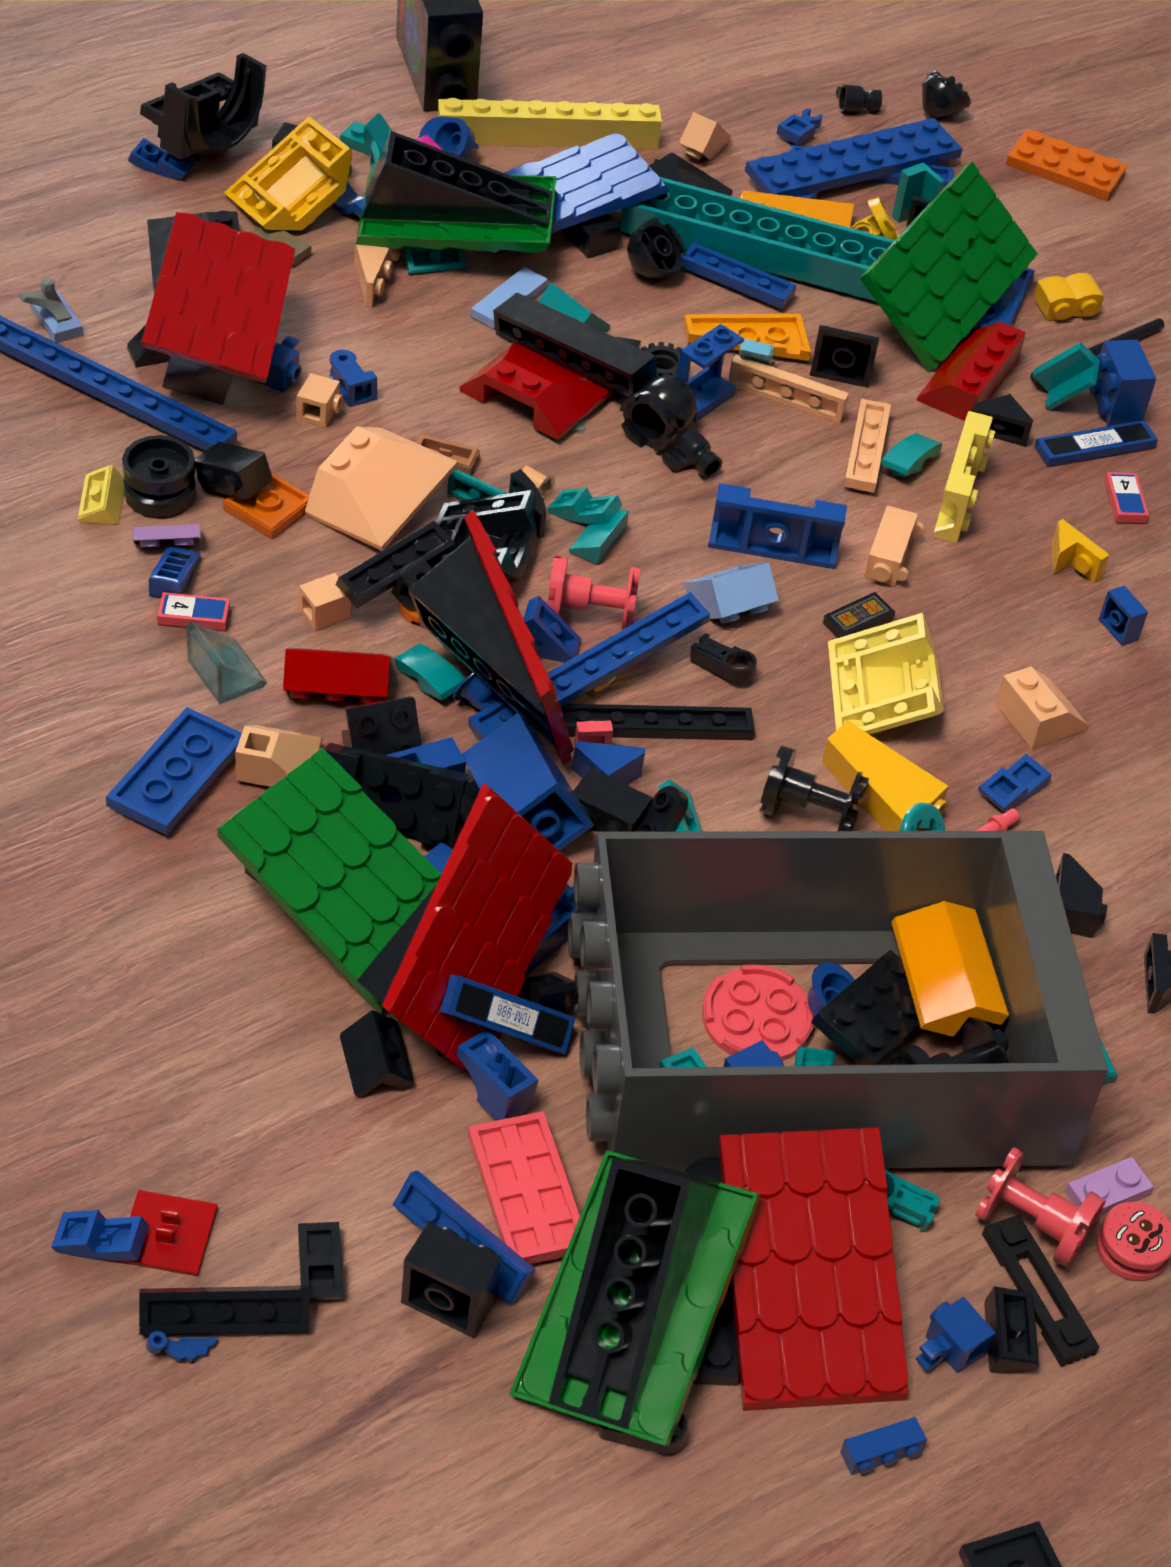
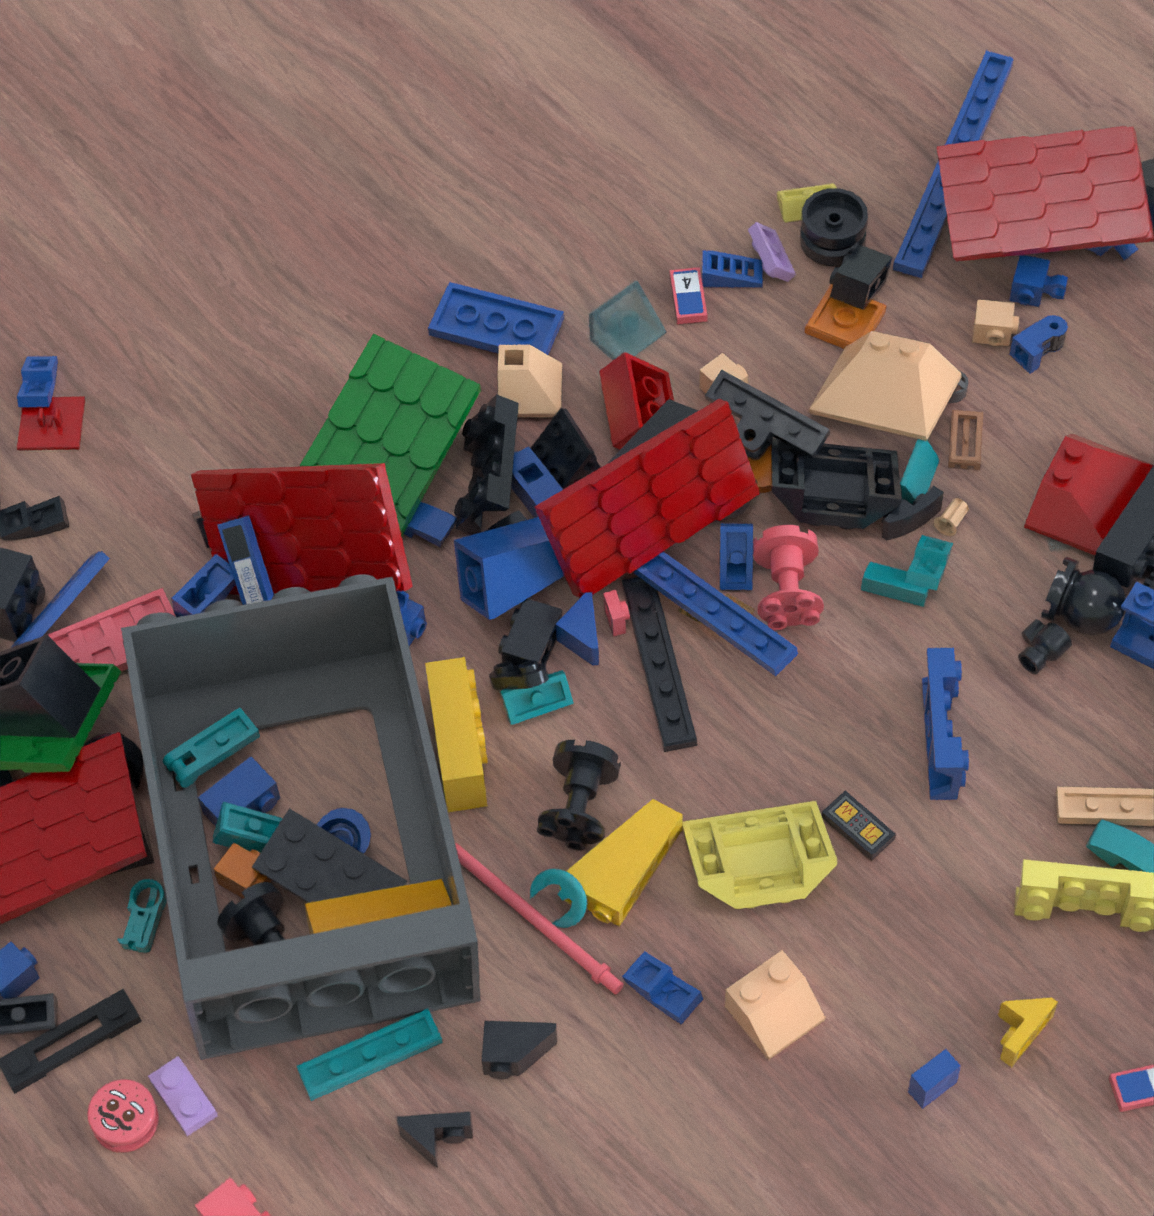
camera: 90 degrees right, 10 degrees up
(53, 312) = (1037, 107): piece -> none
(719, 659) = (756, 706): black piece -> none
(735, 591) = (848, 702): light blue slope -> none
(757, 1006) = (329, 779): coral tile -> none
(892, 545) = (967, 841): light nougat brick -> none
(1054, 1214) = (118, 1045): coral piece -> none

